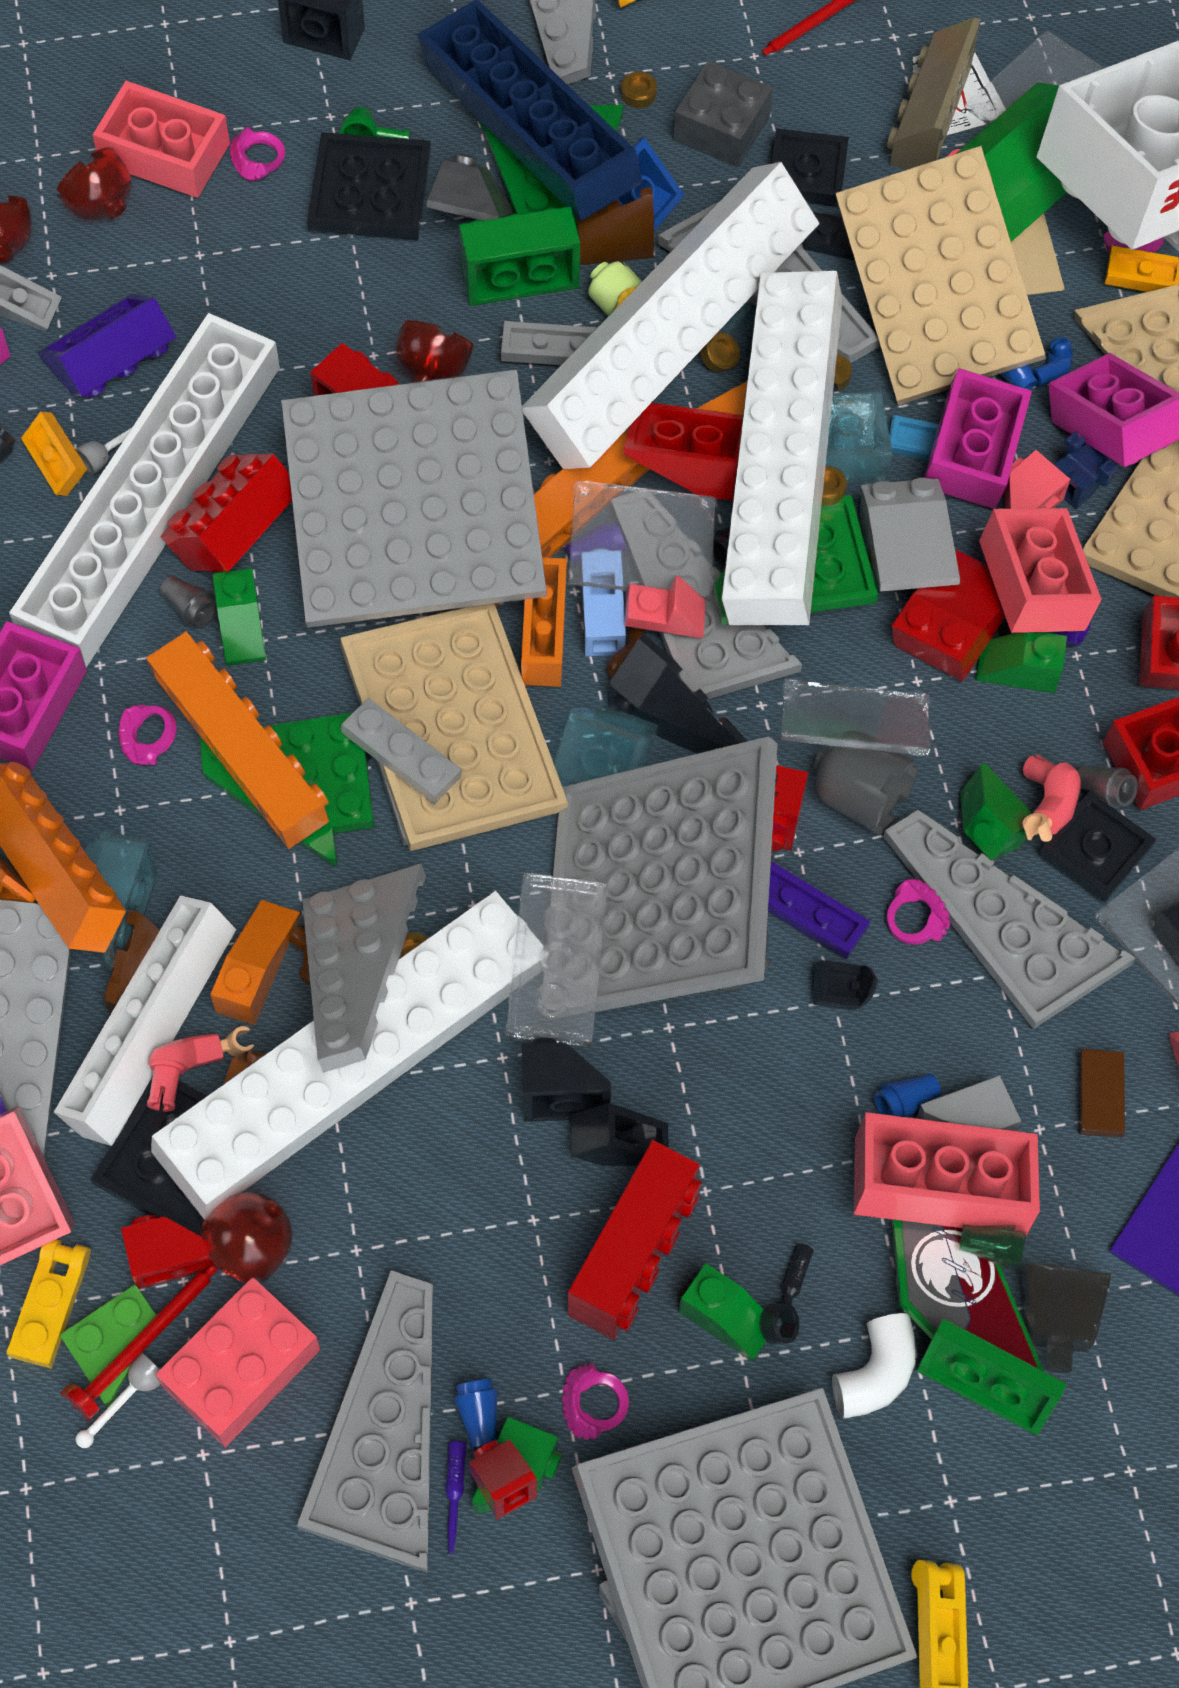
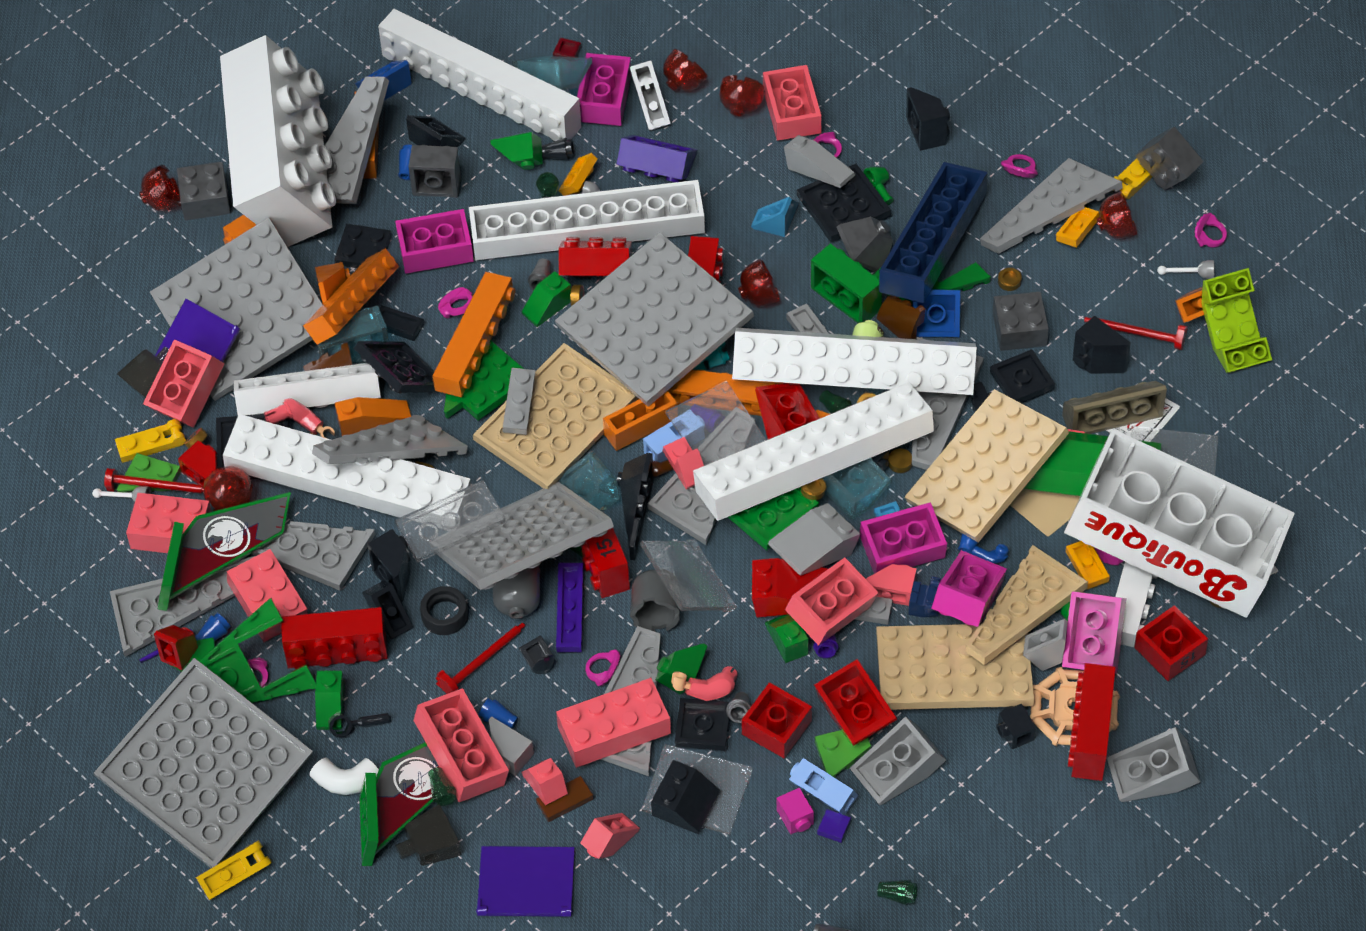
camera: 60 degrees right, 10 degrees down
(51, 499) = (547, 185): none -> clear green cone
(103, 1231) = (199, 435): none -> pearl gold tile
(126, 818) = (401, 323): none -> black tile
(216, 869) = (397, 366): none -> black plate
(265, 577) = (577, 293): none -> pearl gold tile
(286, 170) = (814, 161): none -> light grey slope
(329, 272) = (775, 217): none -> dark azure slope
(342, 1315) = (218, 541): none -> piece
(426, 1188) = (320, 551): none -> light grey wing
(485, 1292) = (260, 580): none -> coral brick
(592, 1422) = (232, 666): none -> green wing
(677, 1032) = (444, 594): none -> black tyre
(693, 387) = (833, 402): none -> clear green cone
(810, 1130) = (450, 684): none -> red piece
(840, 55) = (1100, 348): none -> black slope
(1044, 952) = (613, 722): none -> coral brick
(1063, 1096) = (546, 781): none -> coral slope

